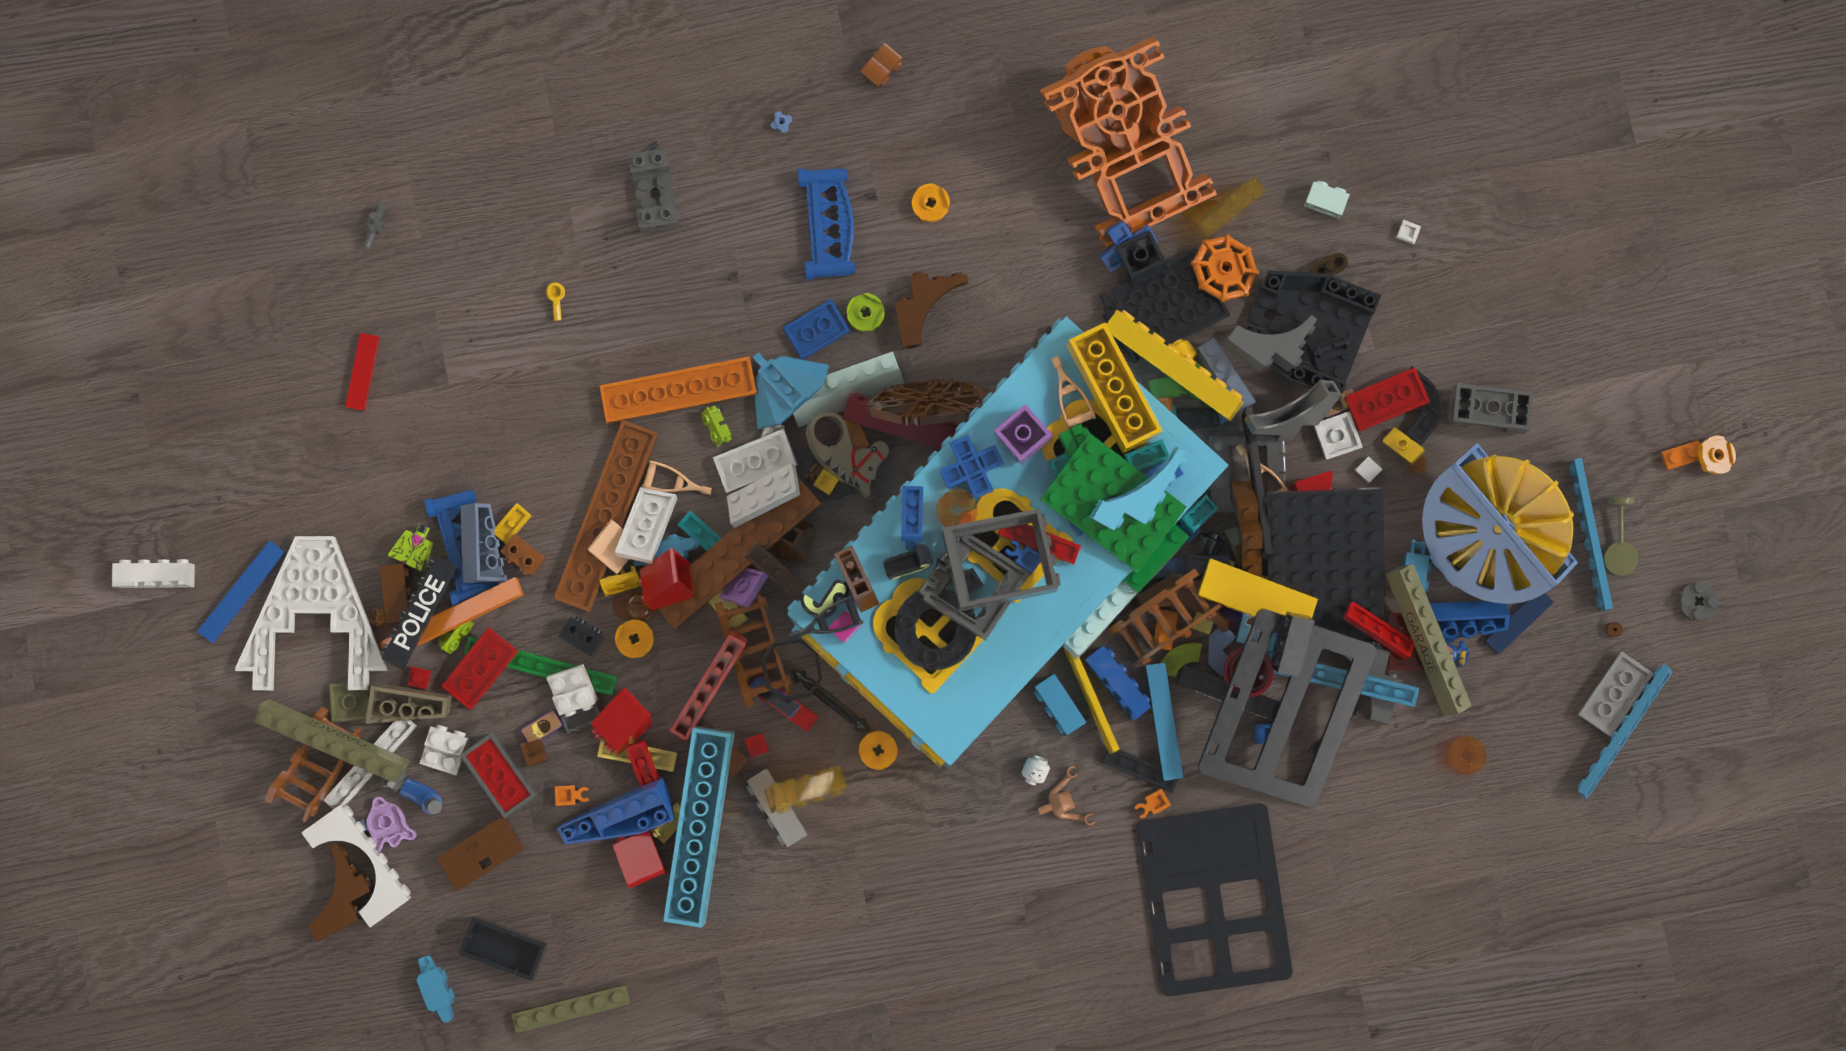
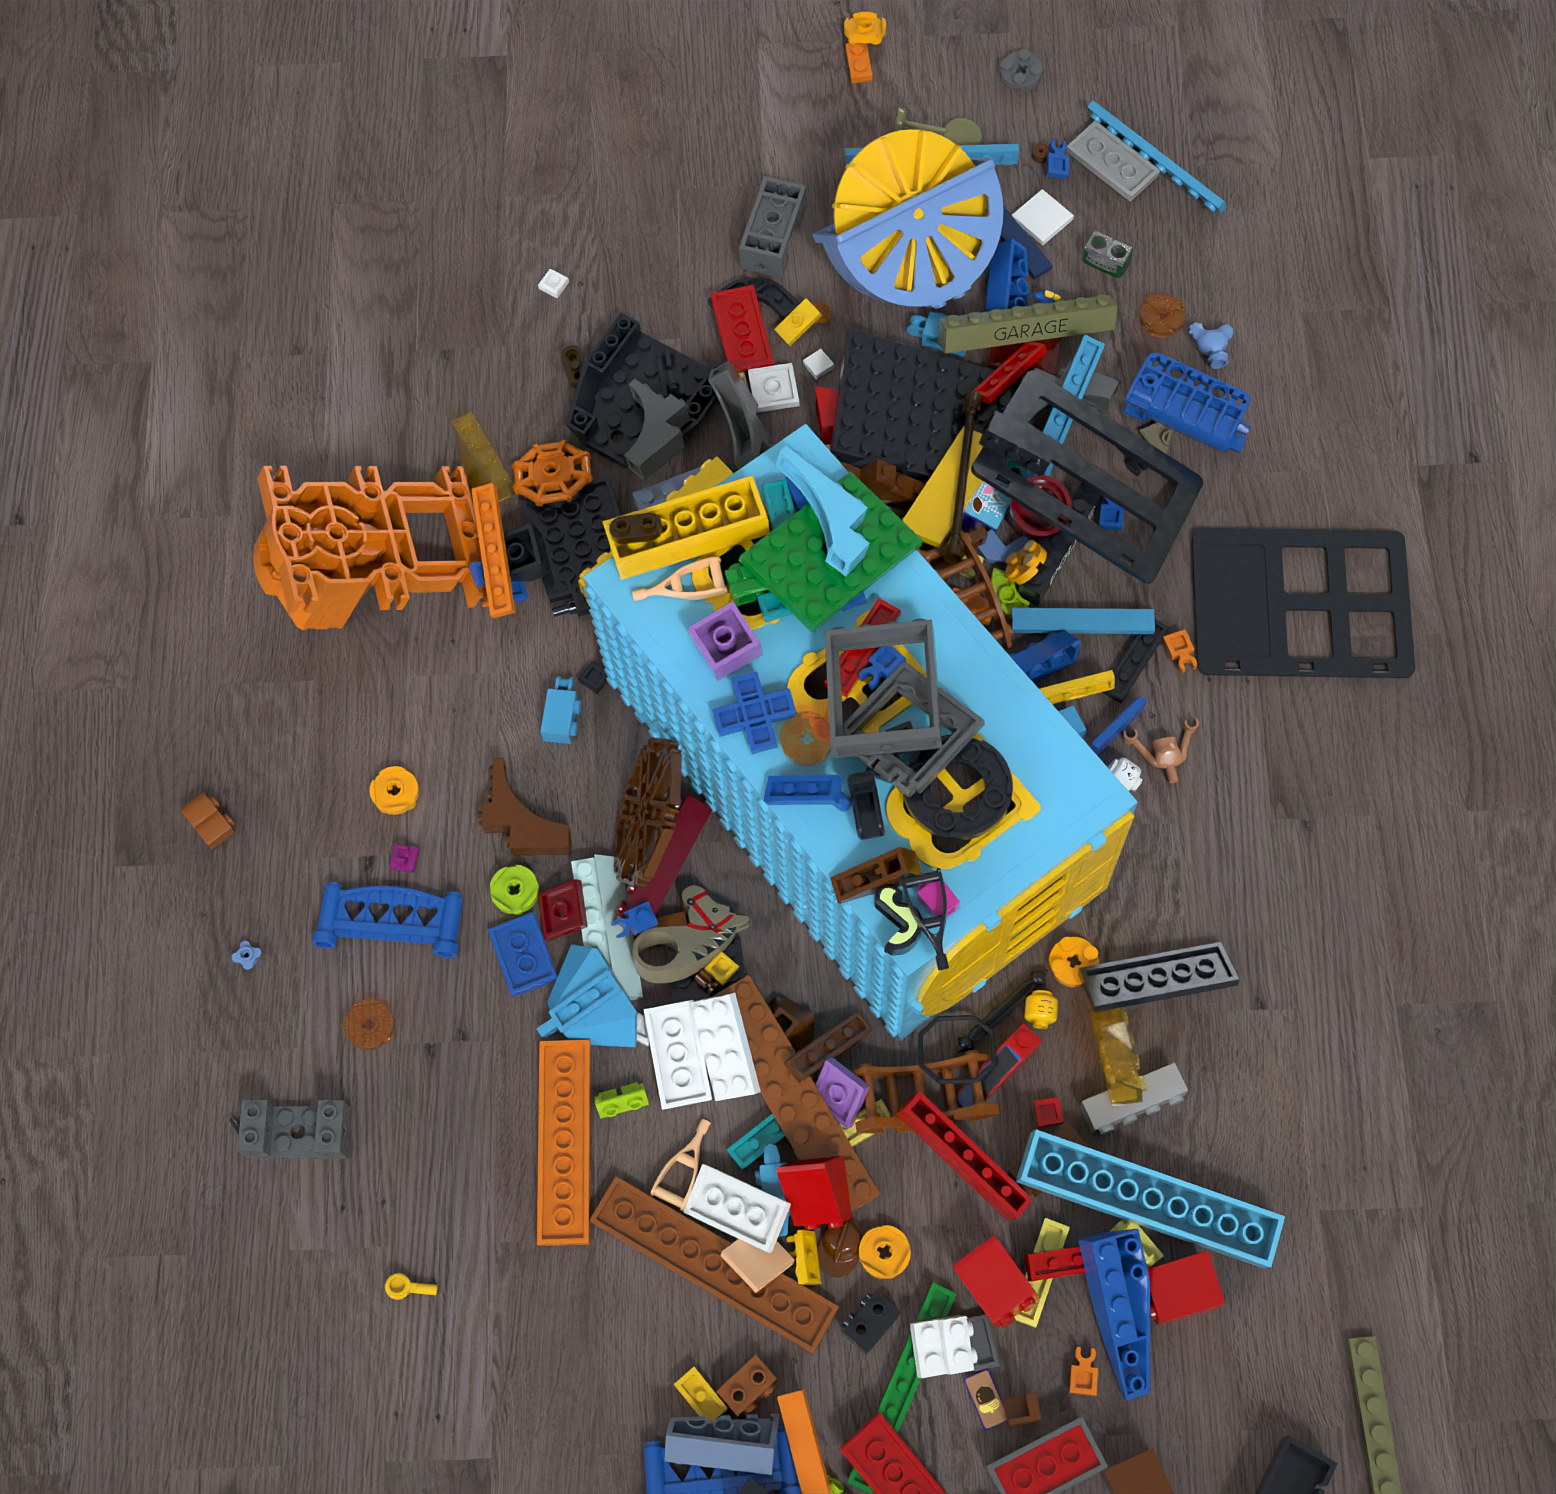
camera: 75 degrees left, 15 degrees down
(733, 221) = (358, 1015): none -> clear orange plate
(835, 729) = (1041, 1009): none -> yellow head
(849, 411) = (637, 919): none -> blue plate
(853, 352) = (562, 910): none -> dark red tile
(872, 815) = (1158, 977): none -> plate
(877, 222) = (404, 858): none -> magenta tile
(1016, 318) = (560, 712): none -> dark azure brick
(1077, 760) = (1118, 725): none -> blue tile
(1100, 348) = (635, 528): none -> dark brown plate
(1137, 236) = (493, 550): none -> orange plate
(1195, 605) = (954, 547): none -> dark brown hose
(1203, 666) = (1023, 564): none -> light orange plate
(1326, 199) = (496, 356): light aqua brick -> none
(1350, 765) = (1157, 435): none -> dark tan tile
(1371, 783) = (1187, 406): none -> blue piece
(1444, 800) = (1212, 343): none -> medium blue animal
(1507, 701) = (1108, 264): none -> clear piece
(1547, 639) = (1042, 217): none -> white tile
(1603, 645) = (1056, 163): none -> blue plate

